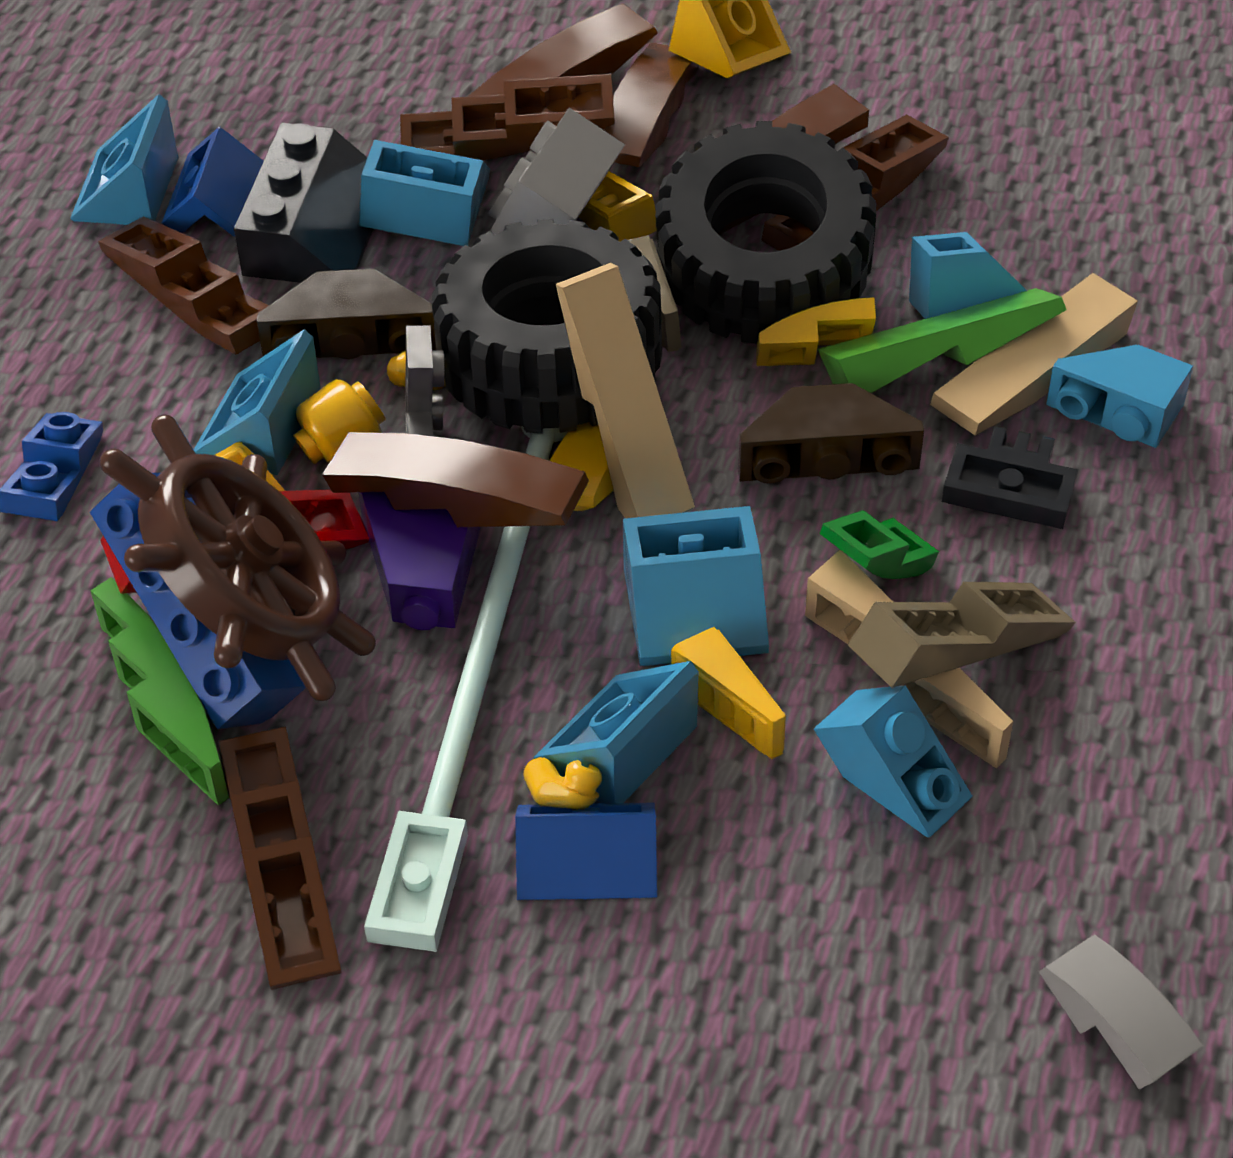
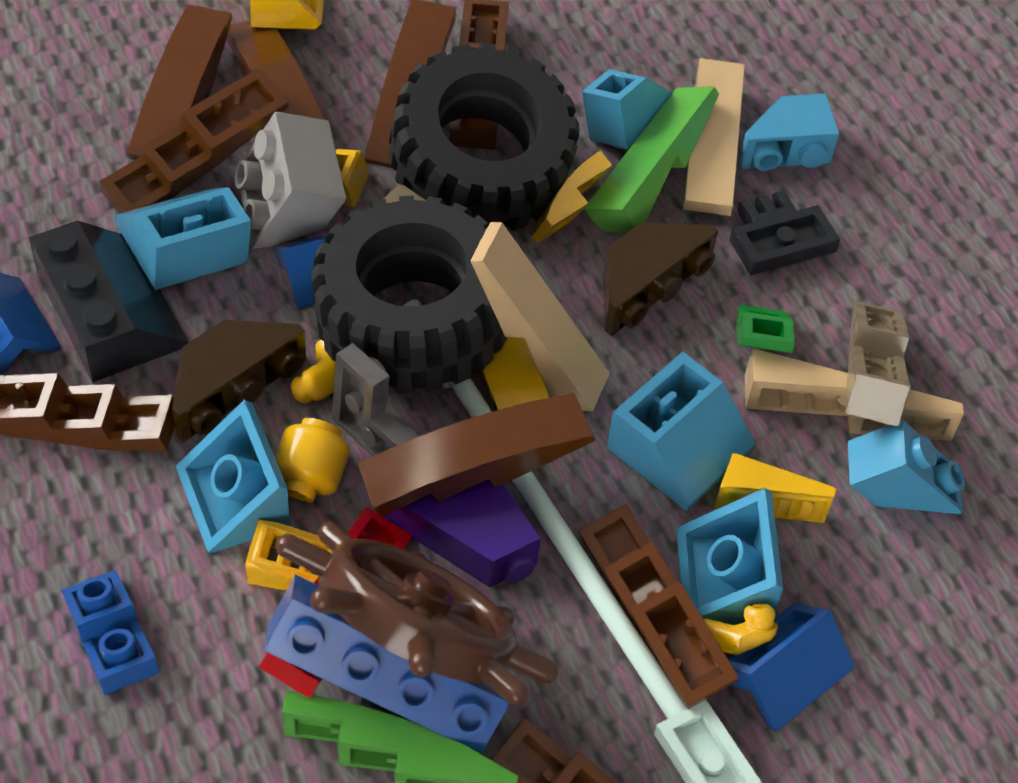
camera: 45 degrees left, 5 degrees up
(509, 717) = (658, 607): none -> reddish brown slope

